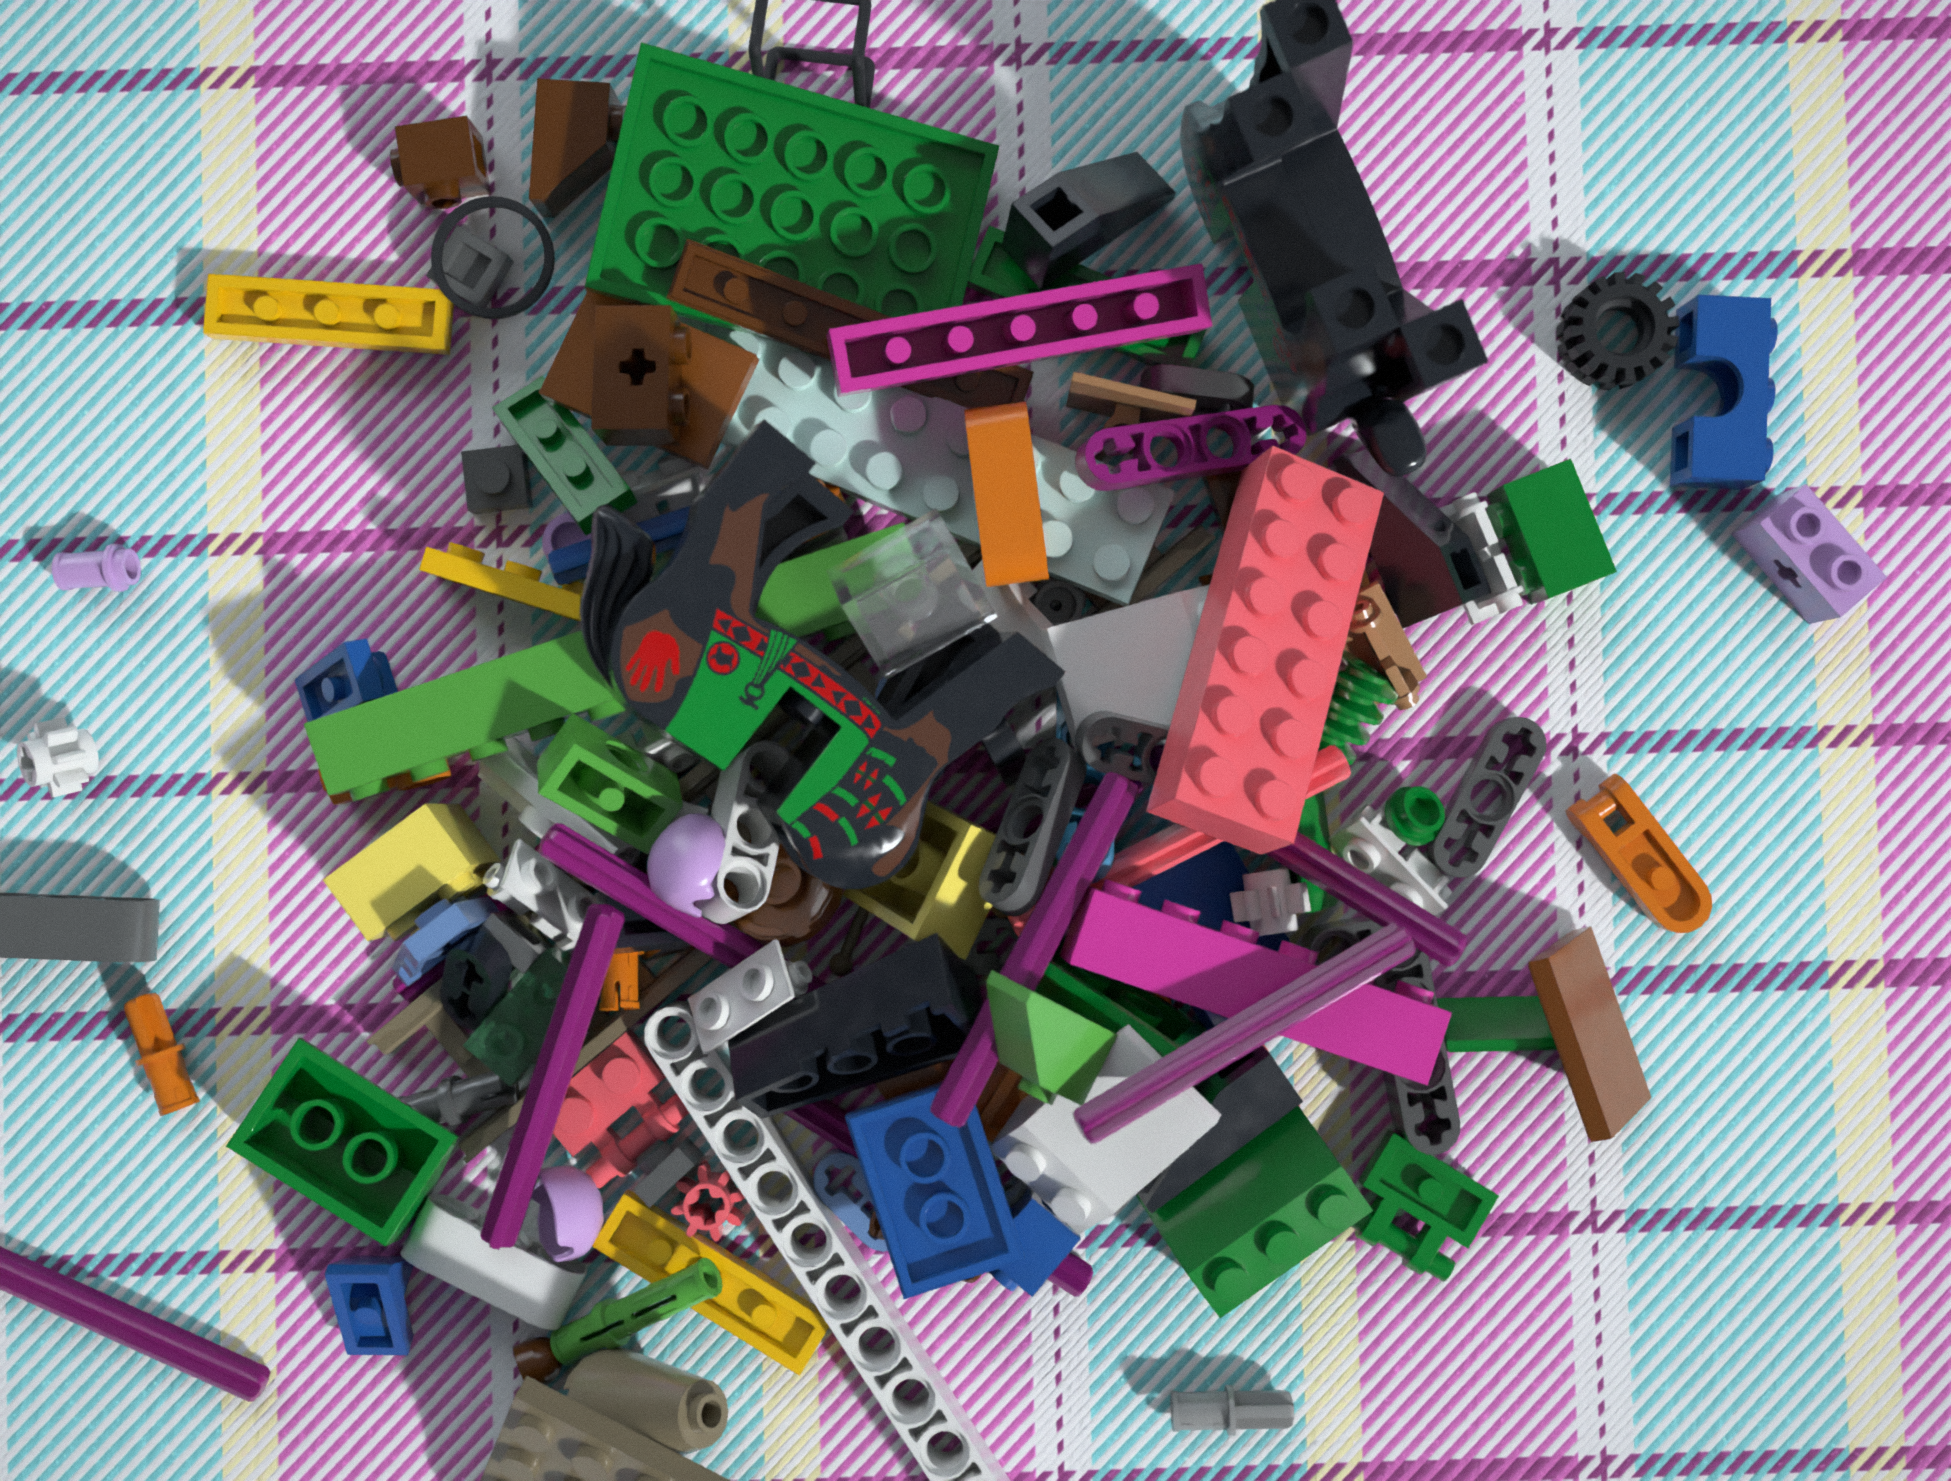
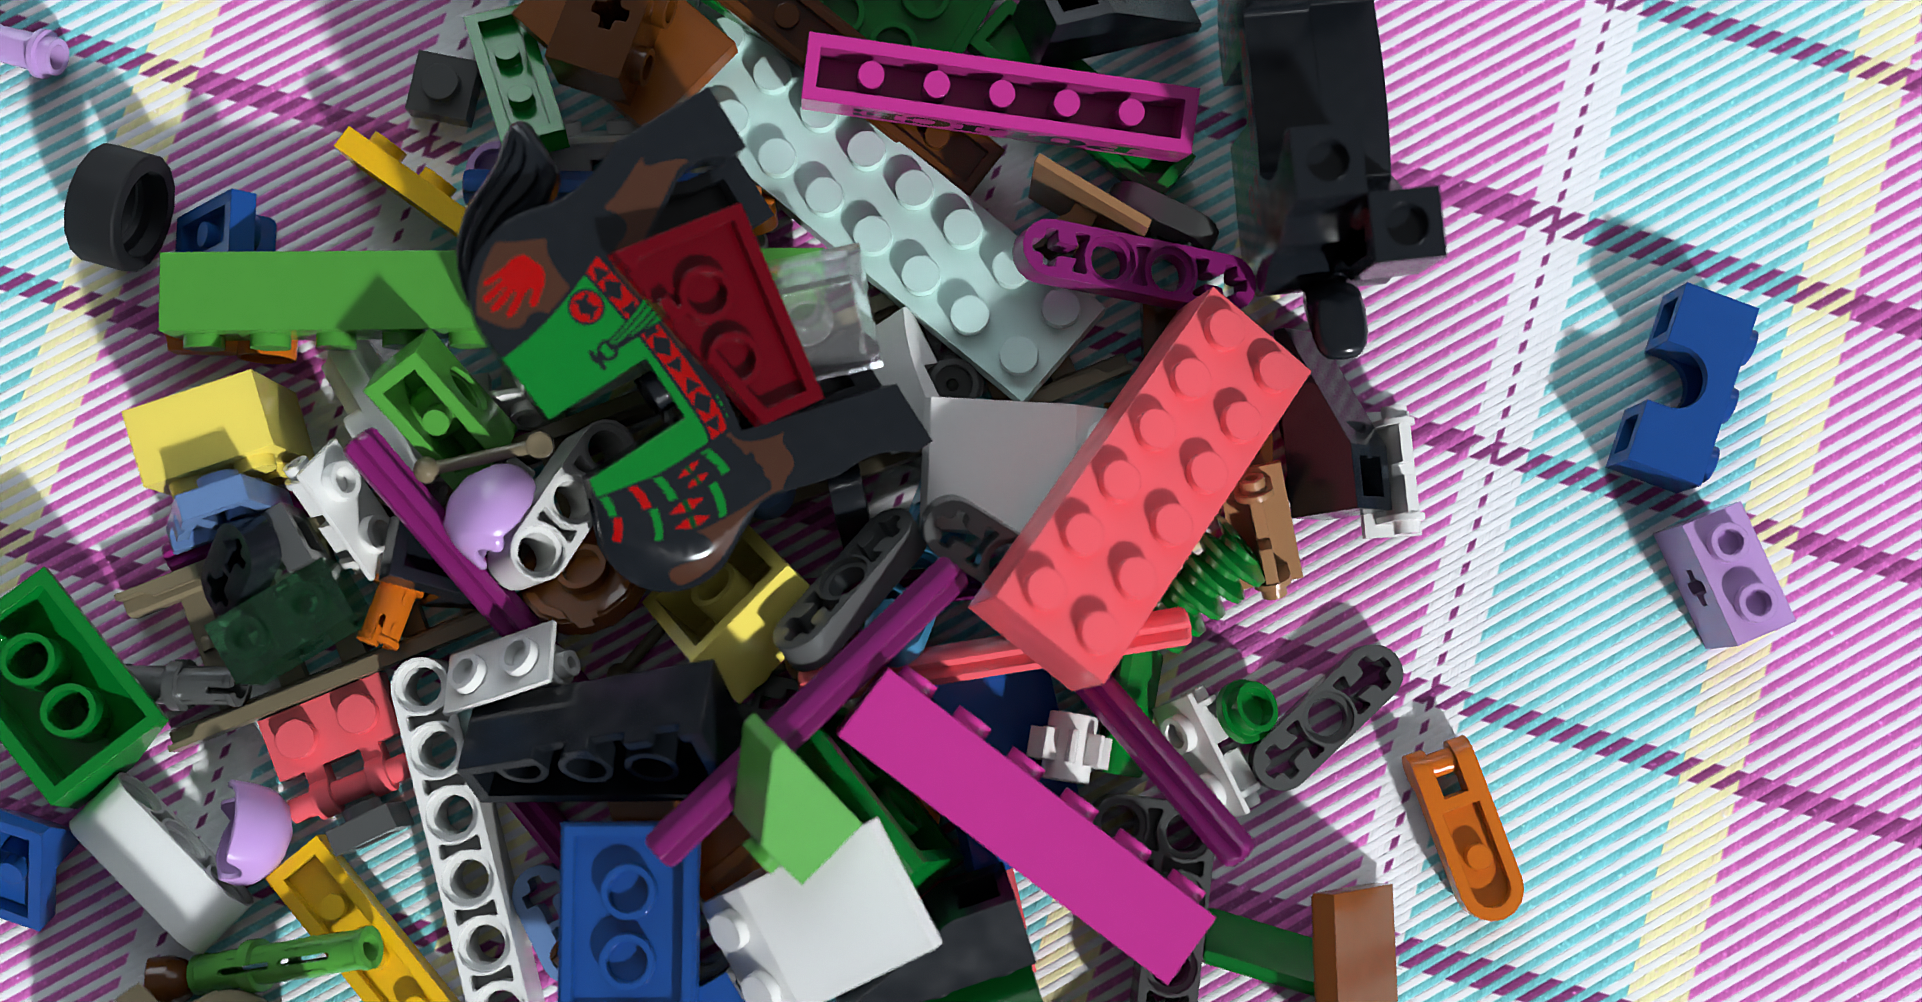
camera: 10 degrees right, 5 degrees down
(243, 689) = (119, 207): none -> black tyre
(552, 1075) = (280, 686): magenta axle -> none
(701, 1215) = (391, 886): coral gear -> none
(710, 789) = (537, 445): none -> dark tan hinge
(847, 618) = (726, 310): none -> dark red wing
(1006, 494) = (934, 253): orange beam -> none
(1243, 1033) = (990, 864): magenta axle -> none
(1549, 532) = (1469, 471): green brick -> none
(1646, 312) = (1625, 274): black tyre -> none

